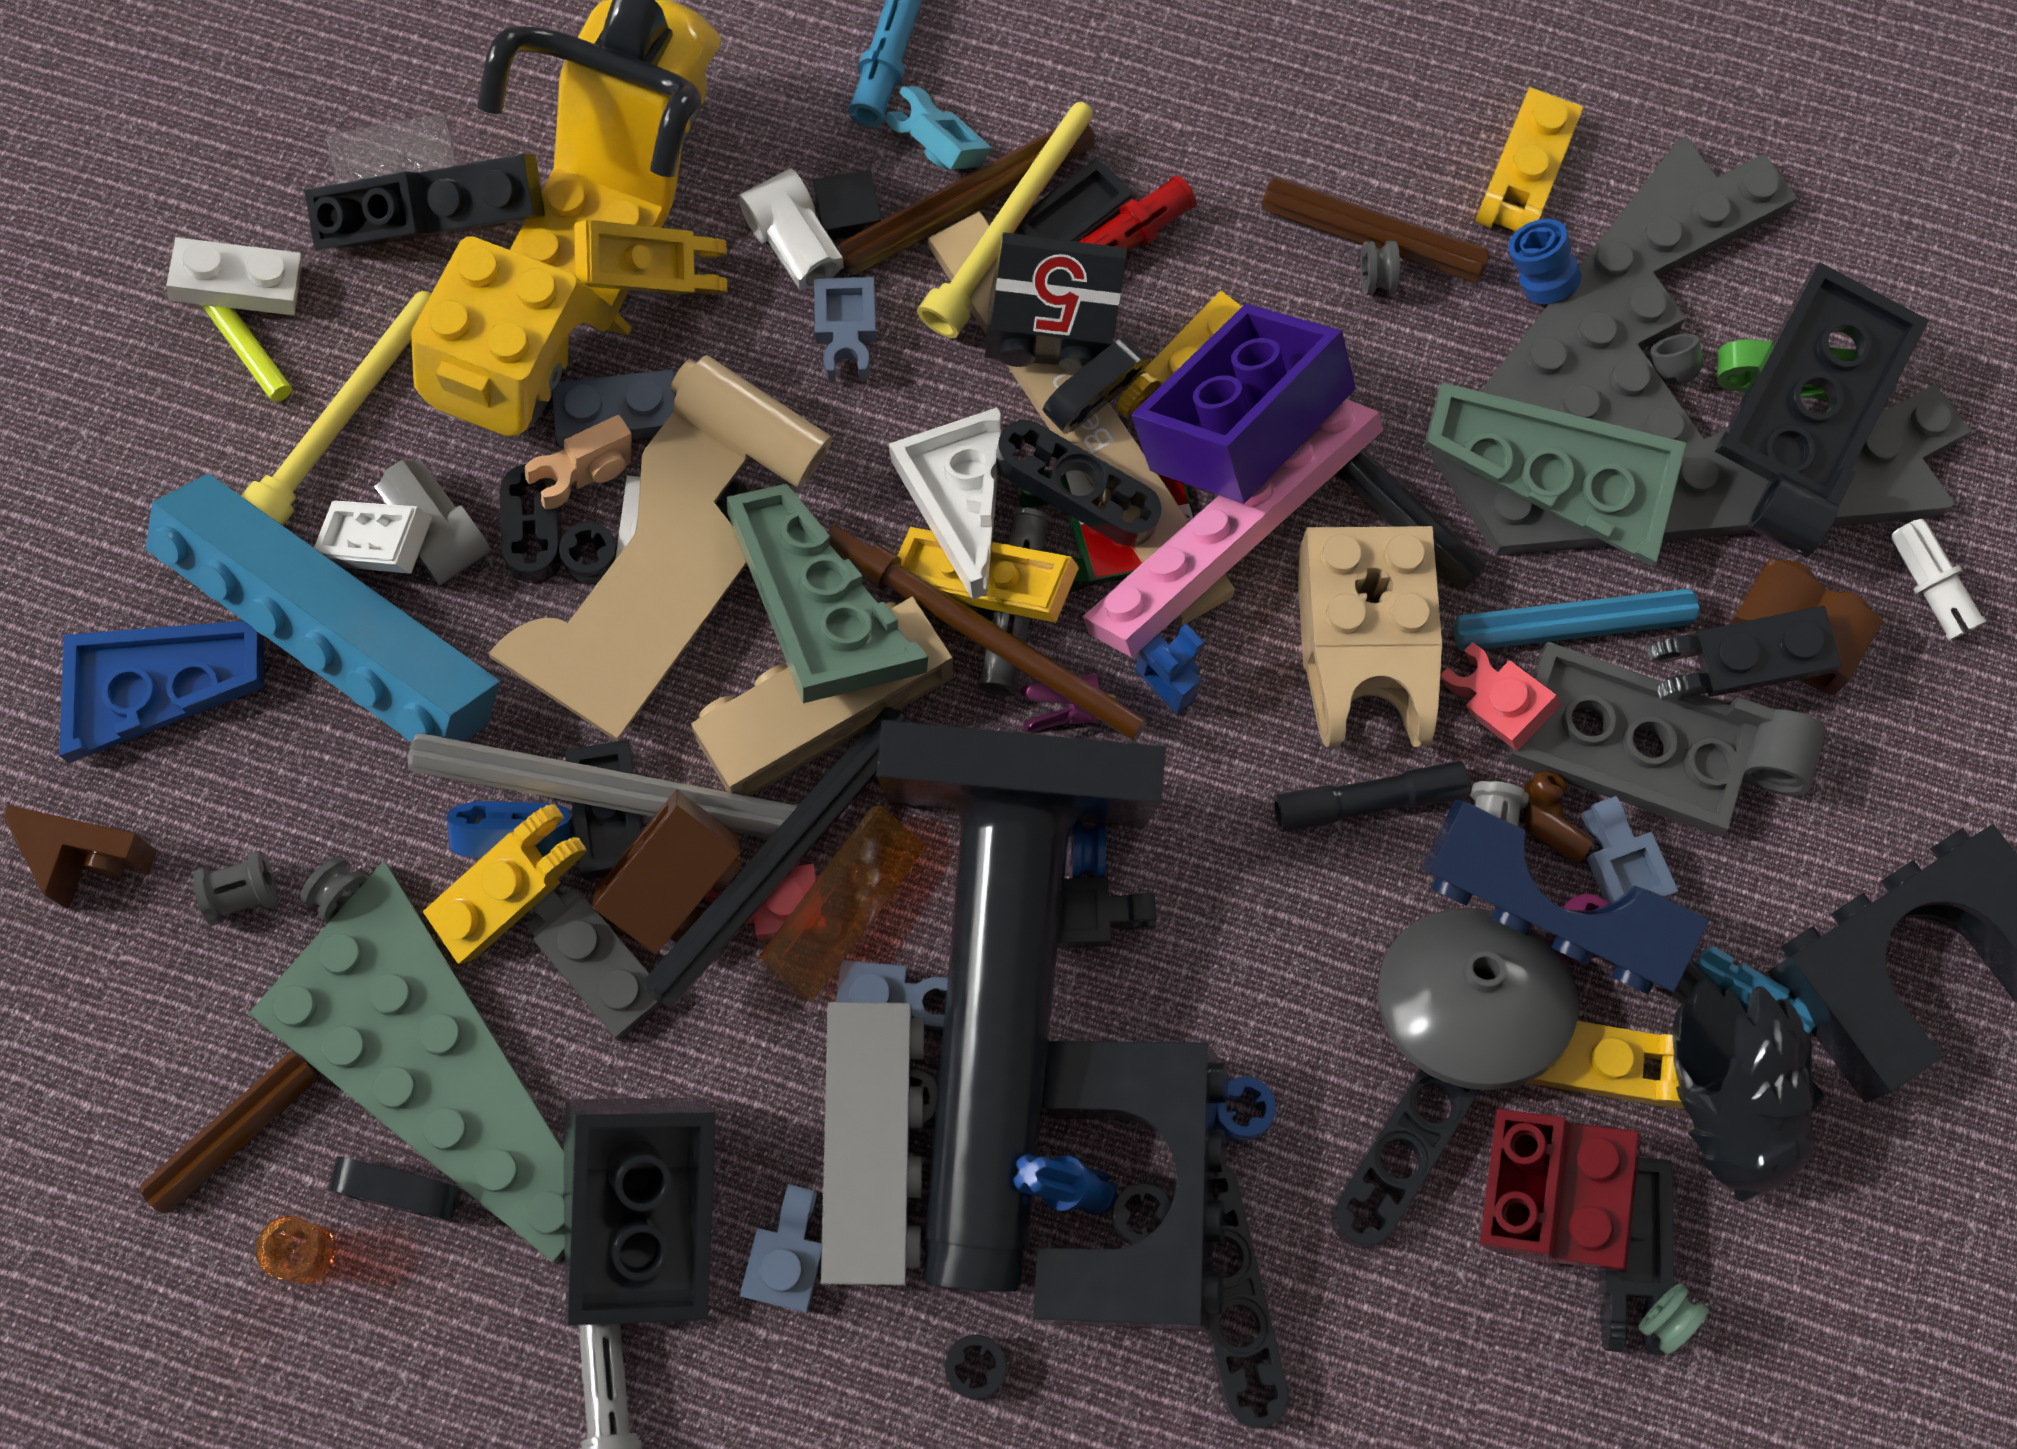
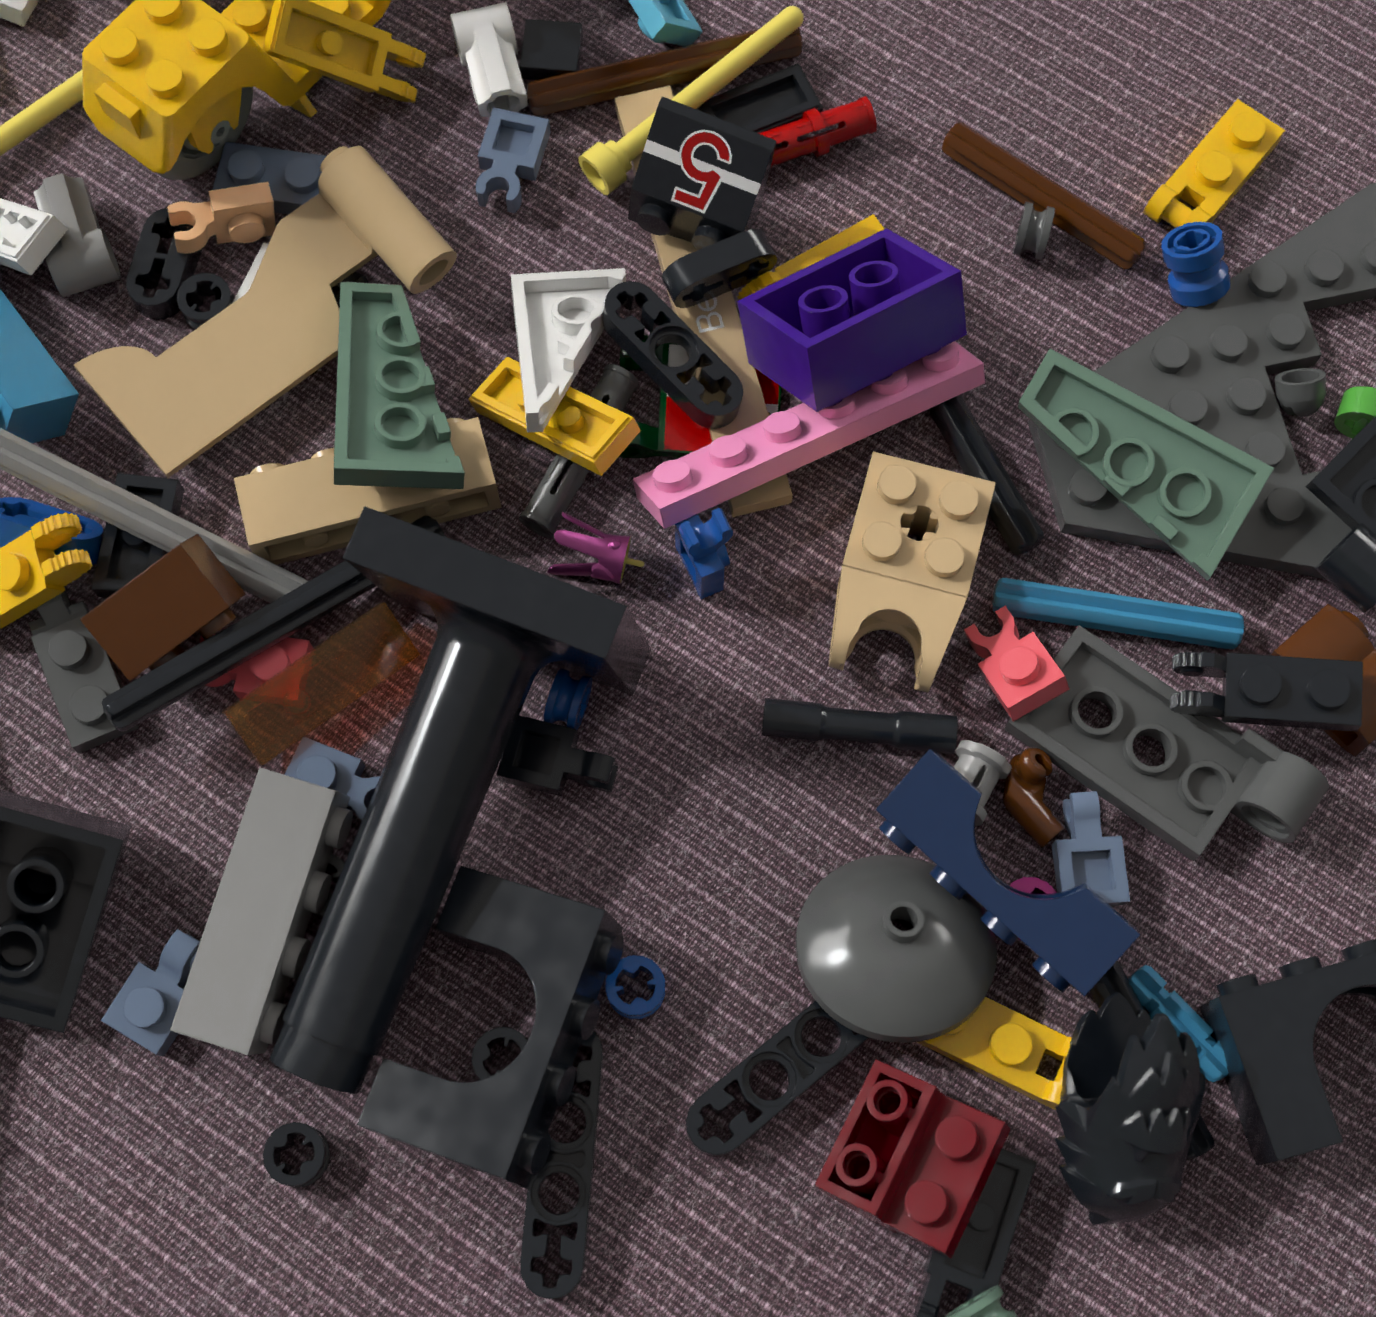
camera: 20 degrees right, 0 degrees up
(885, 570) = (466, 389): reddish brown bar -> none
(1066, 1184) = (431, 1005): blue axle -> none

